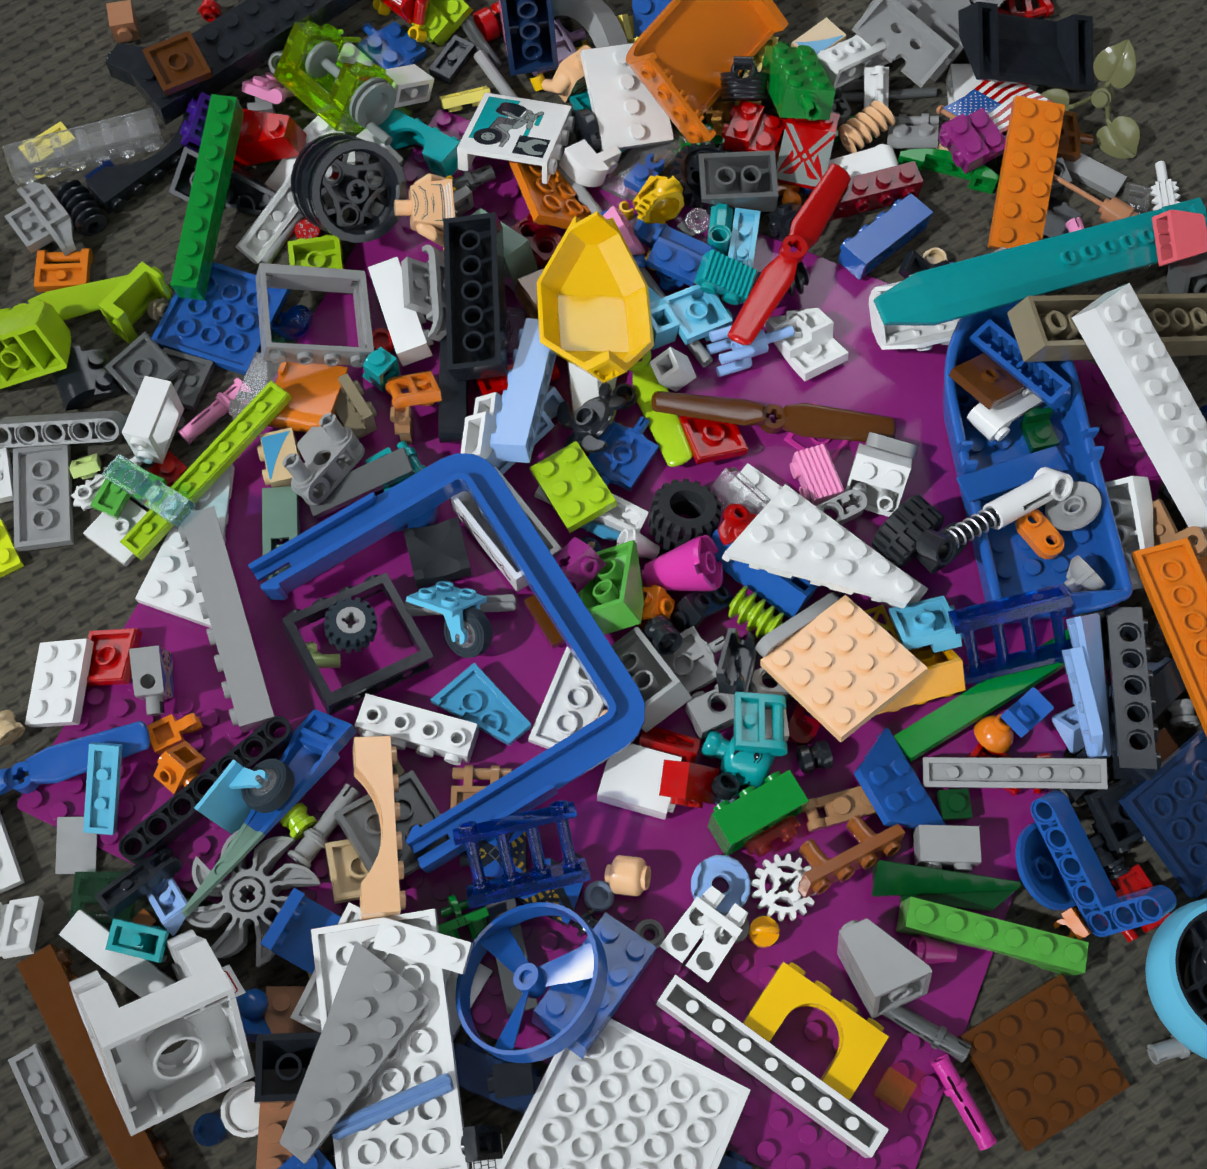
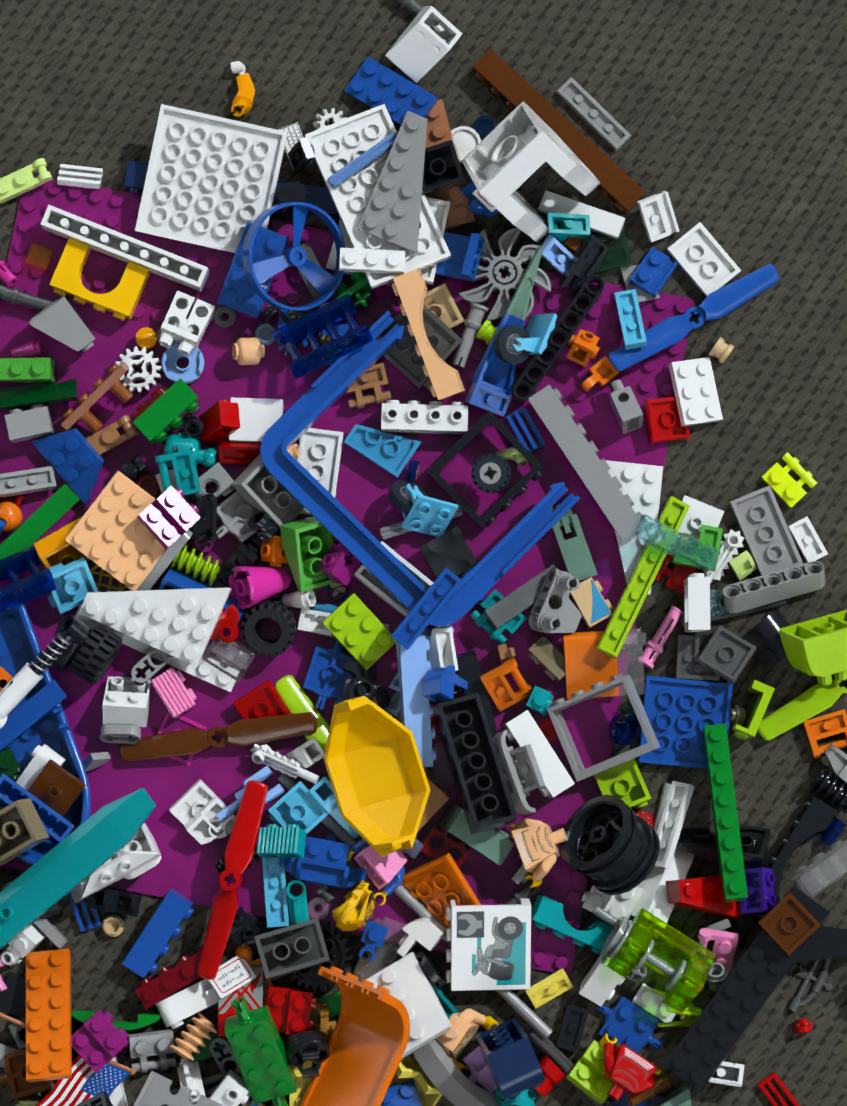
camera: 165 degrees right, 15 degrees up
(52, 853) = (653, 272): none -> blue plate
(288, 663) = (517, 414): none -> blue tile
(451, 667) = (413, 470): none -> clear blue tile
(480, 465) = (426, 608): none -> blue plate
(489, 389) = (442, 683): none -> blue brick
(723, 385) = (265, 755): none -> white piece
(784, 664) = (169, 516): none -> plate
(807, 172) = (232, 976): none -> white sticker
(926, 425) = (96, 760): none -> light grey tile
(954, 804) = (27, 459): dark green plate -> none

